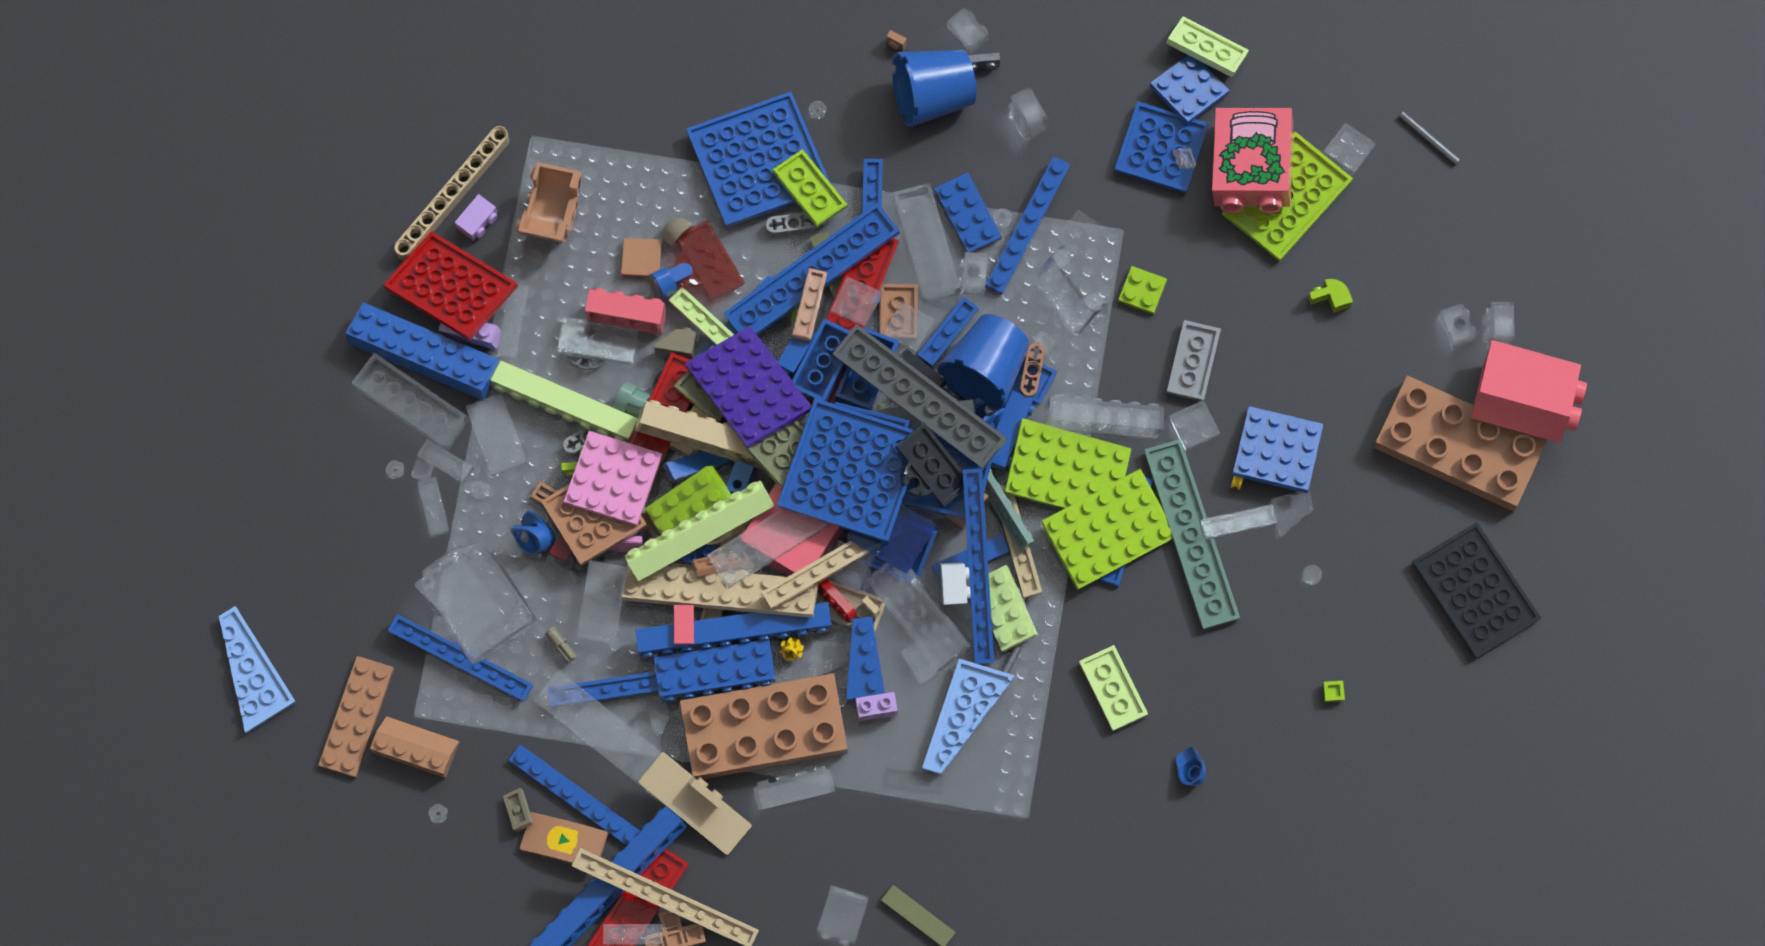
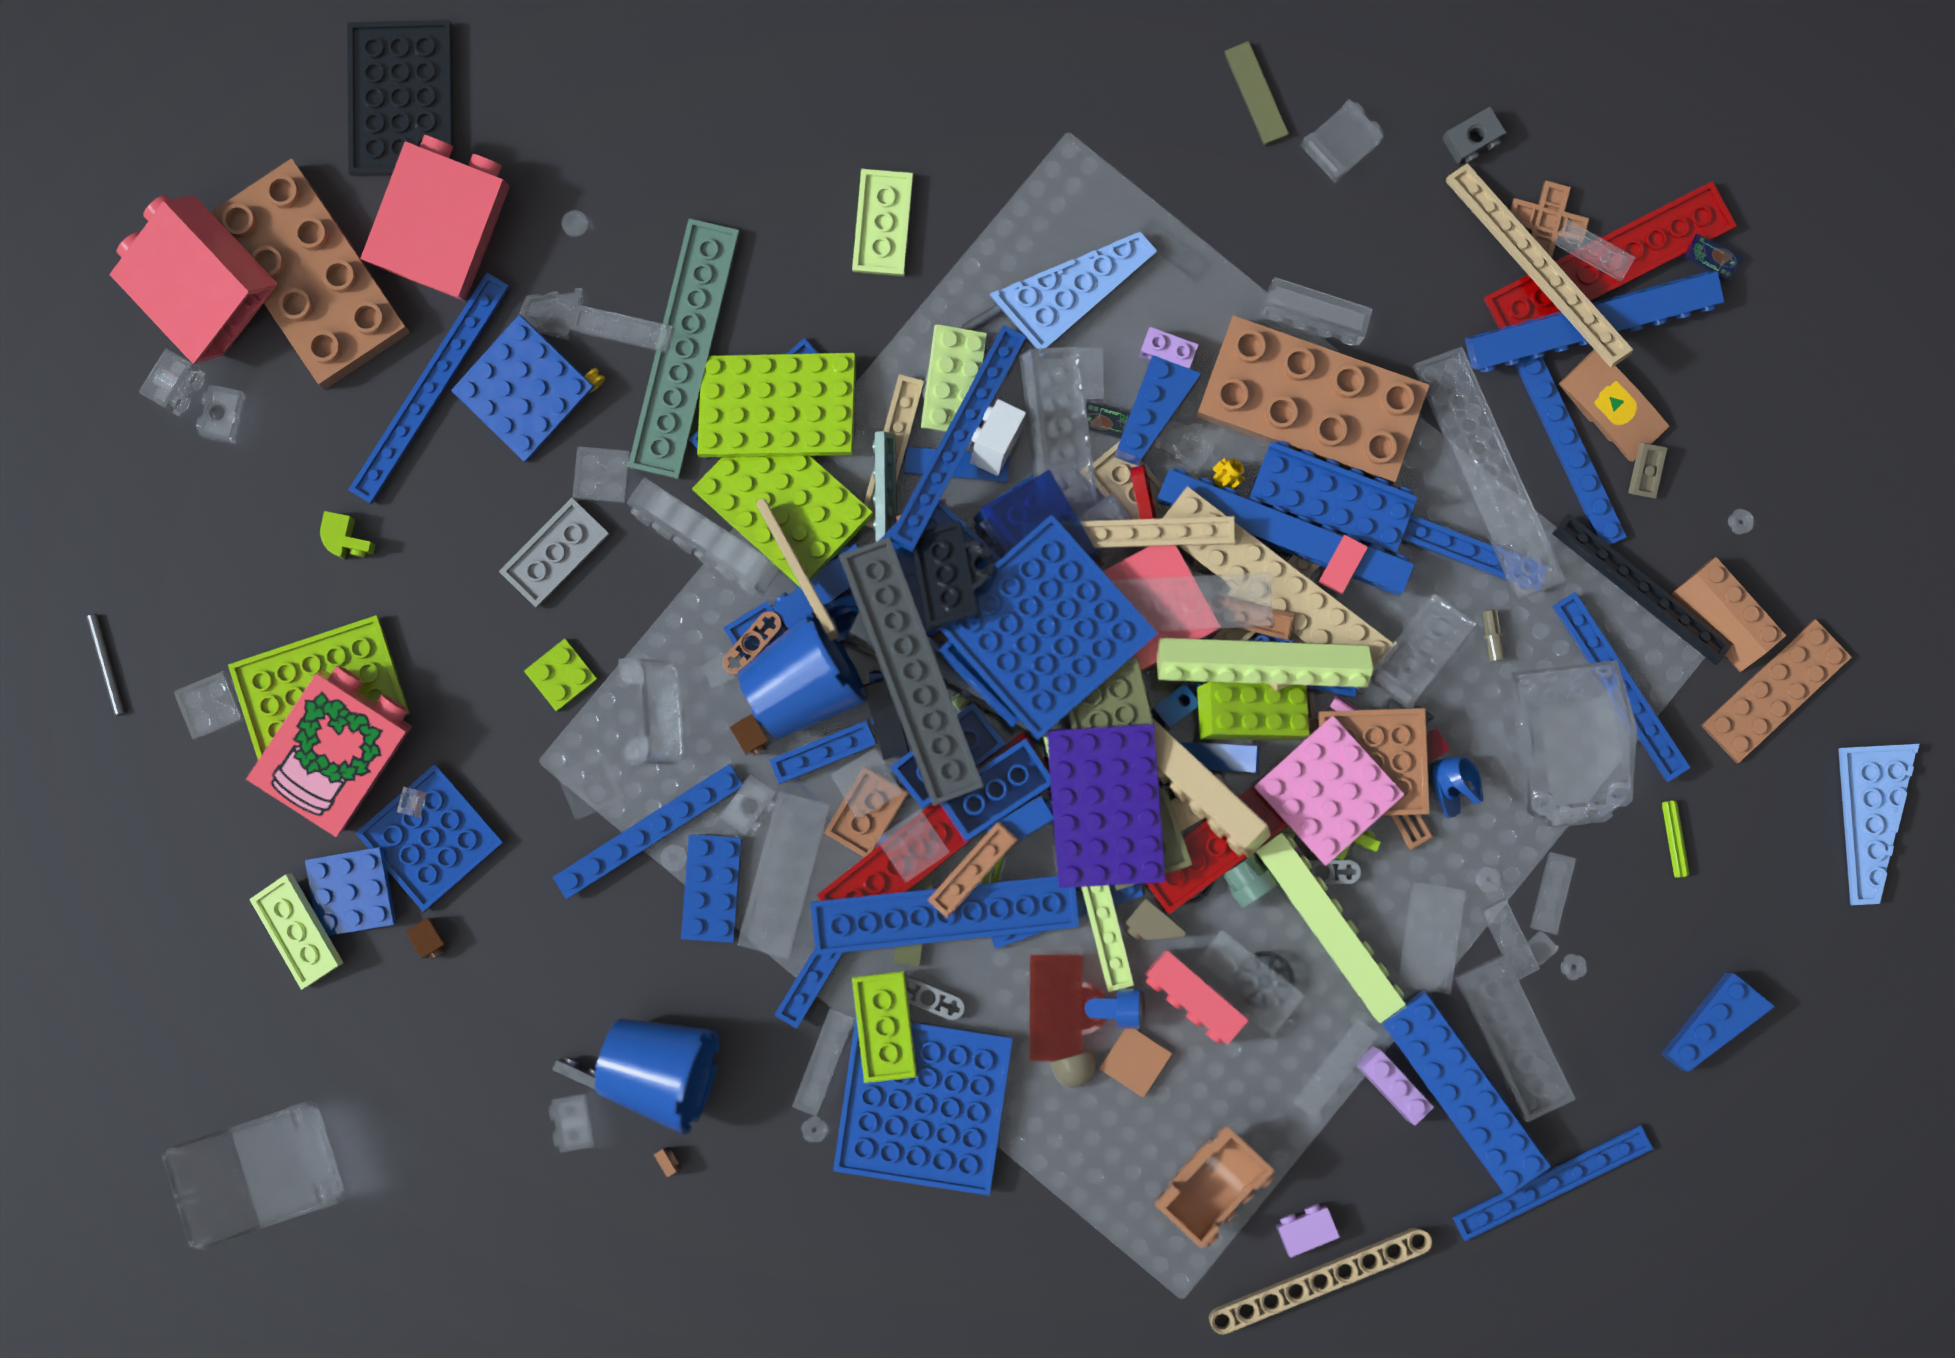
camera: 150 degrees left, 10 degrees up
(284, 488) = (1717, 1020): none -> blue wedge
(335, 334) = (1553, 1182): none -> blue tile
(372, 585) = (1675, 839): none -> lime axle
(450, 285) = (1389, 1155): red plate -> none
(480, 728) = (1642, 589): none -> black plate
(658, 721) = (1428, 480): clear tile -> none
(695, 803) = (1443, 356): tan bracket -> none
(835, 151) = (823, 1062): none -> clear plate
(870, 607) = (1109, 467): tan tile -> none
(892, 641) = (1106, 420): none -> black tile
(1001, 310) = (750, 735): none -> reddish brown brick
(1027, 113) = (565, 970): clear brick -> none
(1030, 424) = (797, 569): none -> tan tile
(1124, 87) = (427, 939): none -> reddish brown brick
(1190, 767) = (850, 86): blue cap -> none
(1333, 691) = (634, 76): lime plate -> none
(1337, 417) = (429, 388): none -> blue plate
(1399, 519) = (436, 217): none -> coral brick

